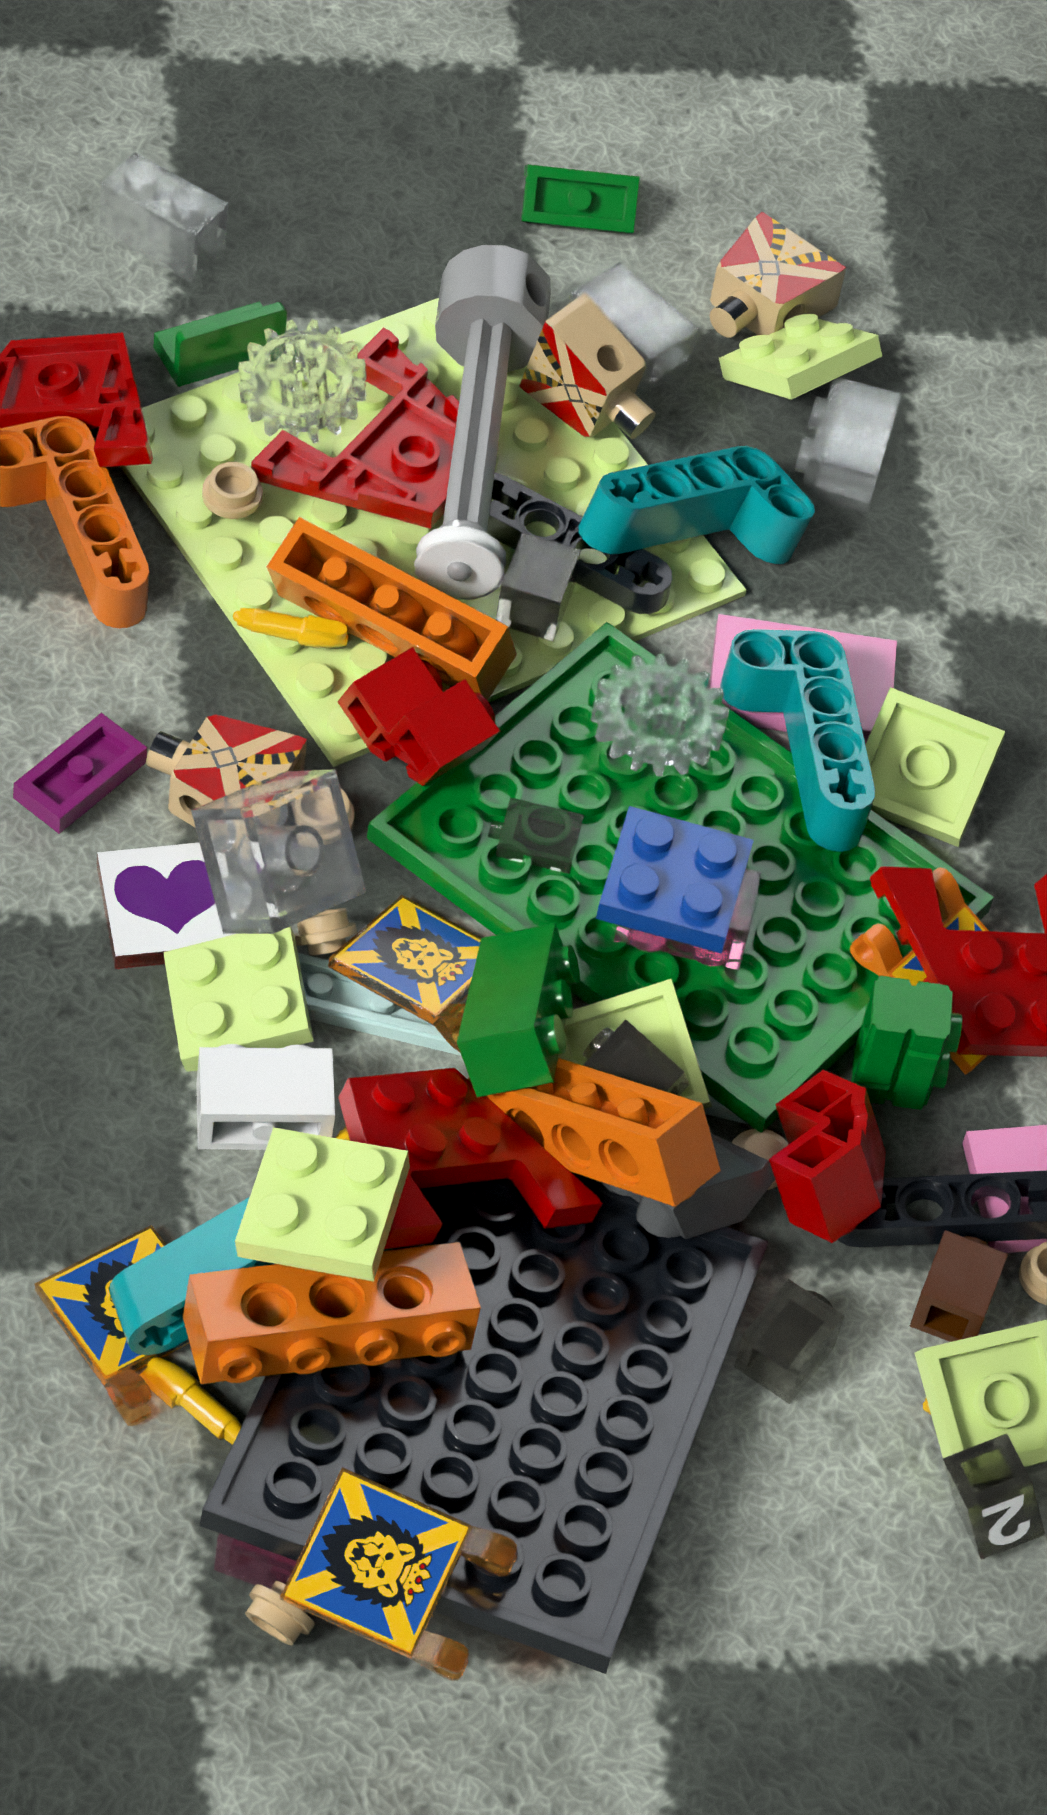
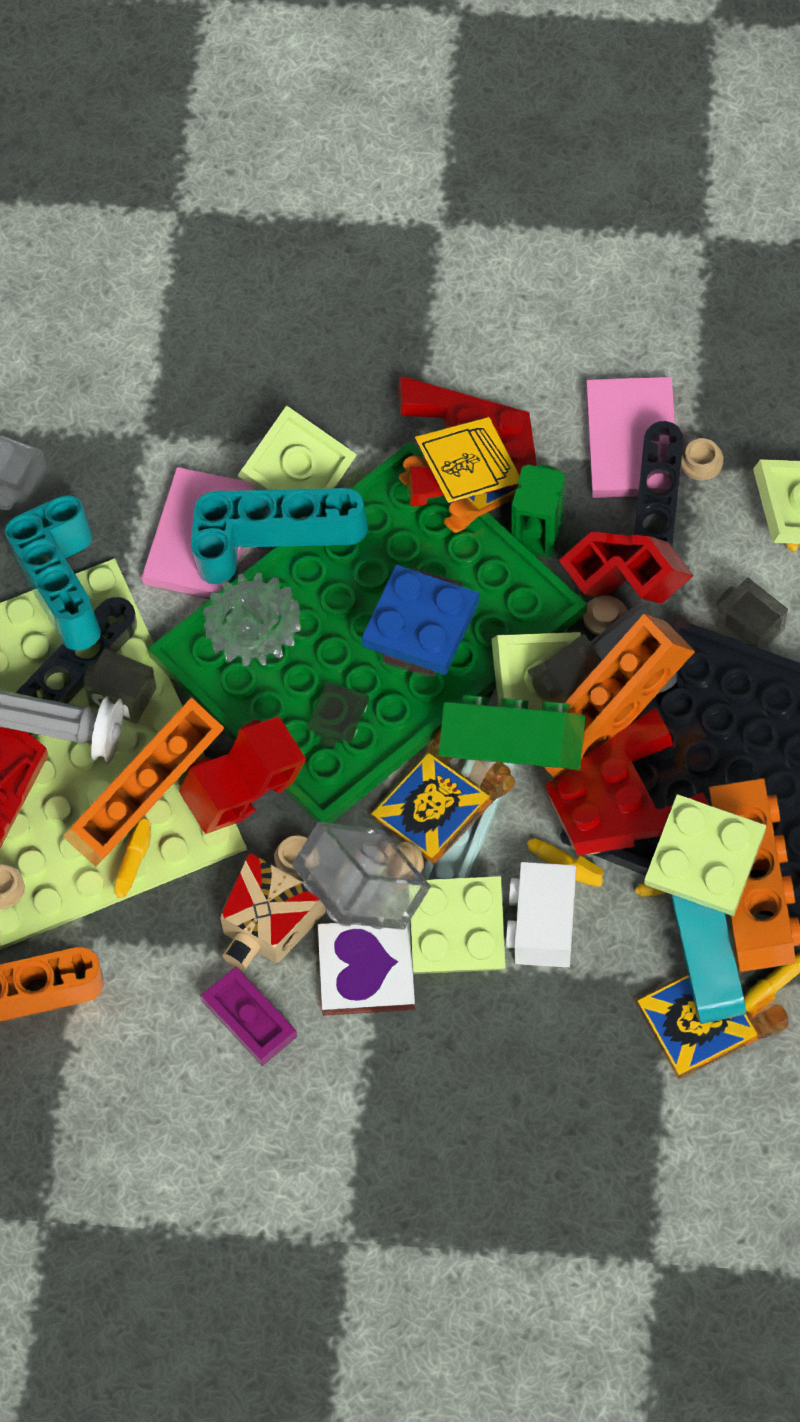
camera: 70 degrees left, 10 degrees up
(958, 1288) = (716, 512): reddish brown brick -> none
(960, 938) = (468, 459): none -> yellow sticker

